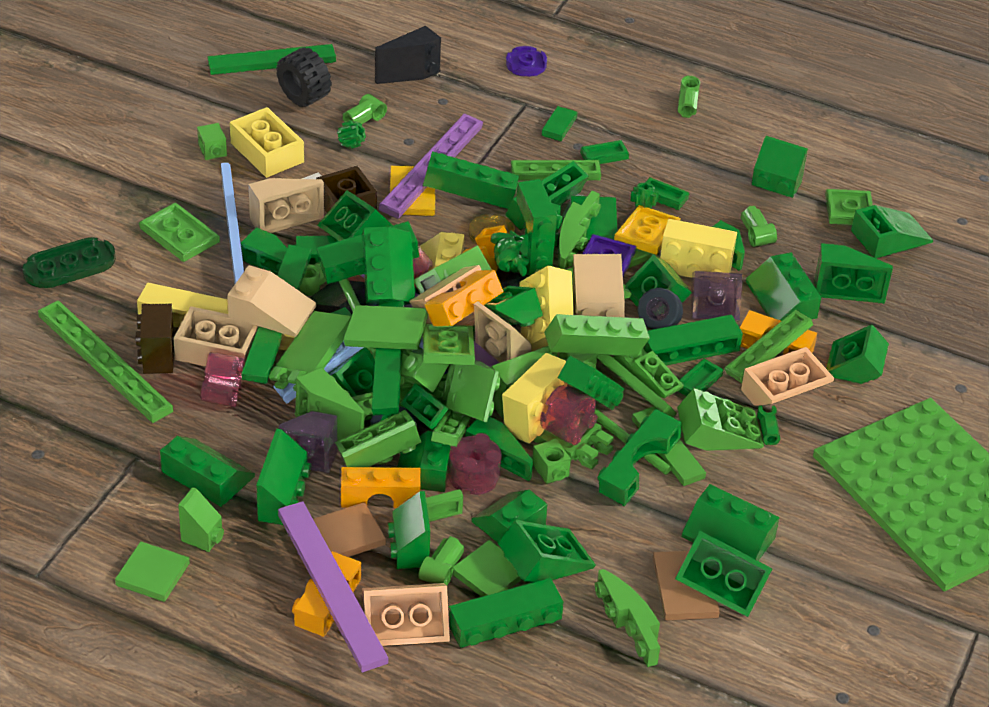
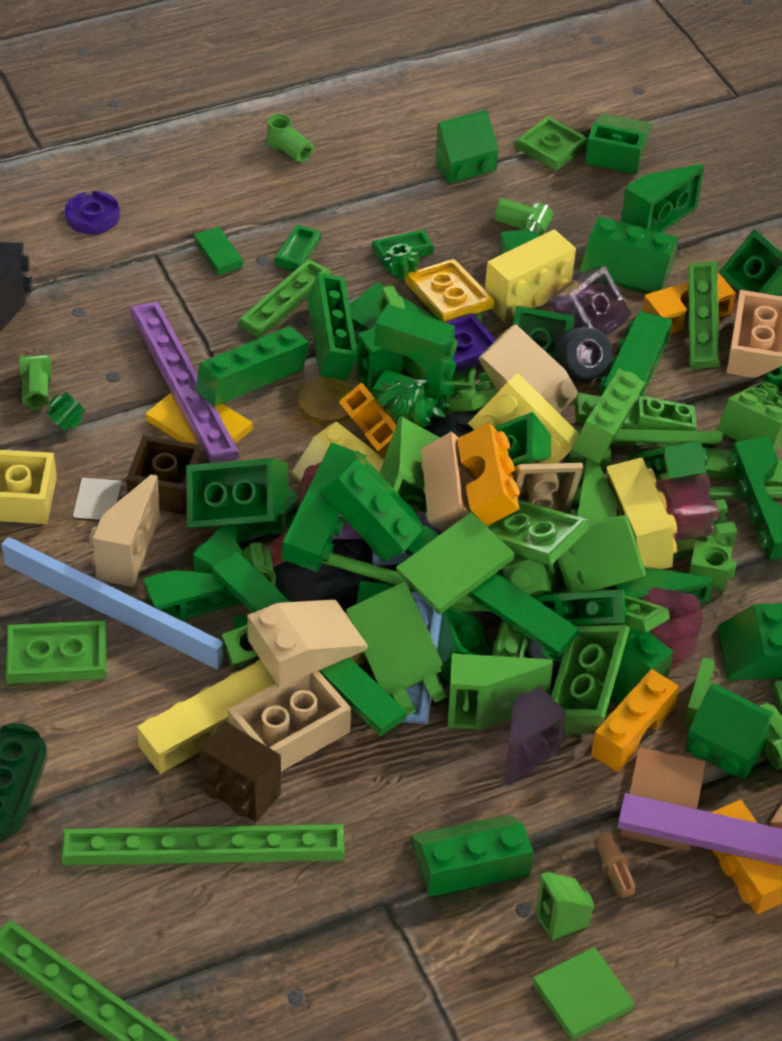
camera: 50 degrees left, 5 degrees up
(222, 379) = (358, 753): clear pink brick -> none
(260, 536) = (615, 864): none -> medium nougat axle
(281, 477) = (557, 797): green slope -> none
(700, 377) = (685, 388): green tile -> none

